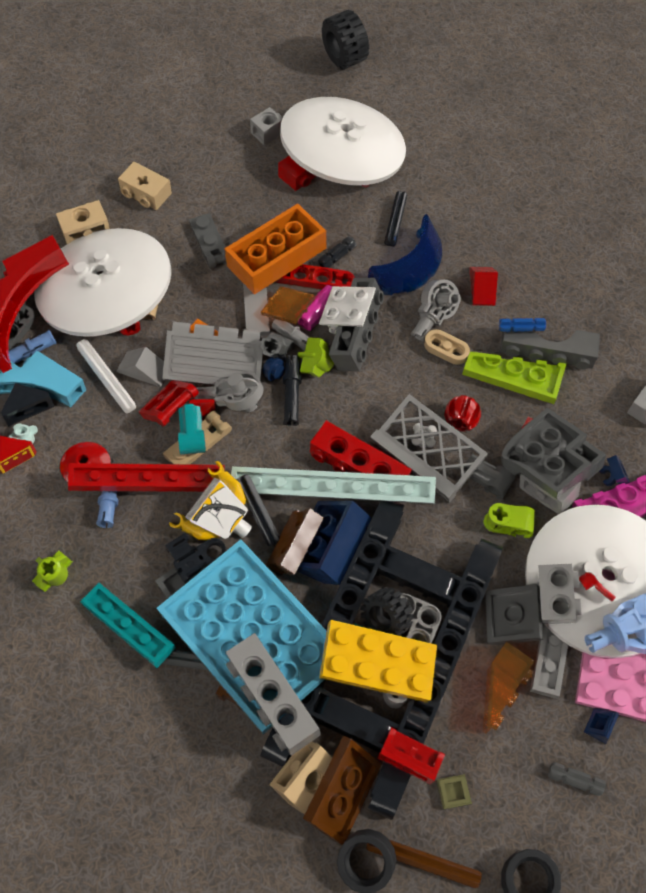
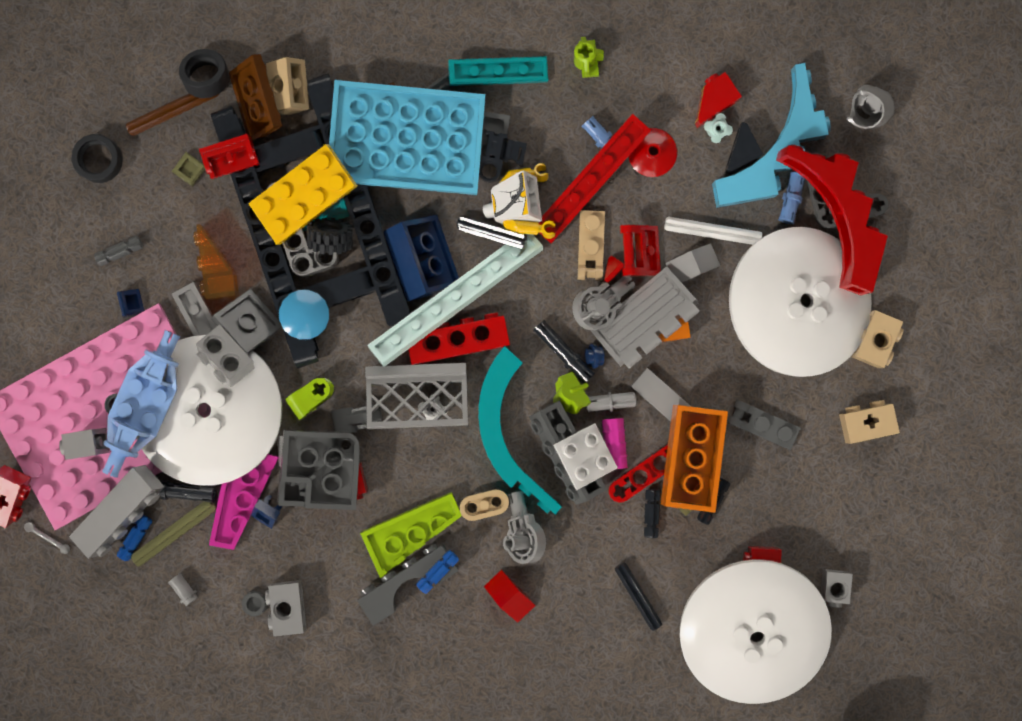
camera: 140 degrees right, 25 degrees up
(191, 435) = (592, 237): teal piece -> none
(253, 653) = (332, 109): light grey brick -> none
(276, 345) = (608, 372): dark grey piece -> none
(288, 305) = (637, 419): clear orange piece -> none
(294, 541) = (443, 231): piece -> none
(370, 406) = (490, 404): none -> teal arch
(414, 268) = (573, 561): clear blue windscreen -> none
(462, 413) = (418, 452): red piece -> none
(463, 574) = (304, 314): none -> dark azure dish
(589, 580) = (210, 387): red hand -> none

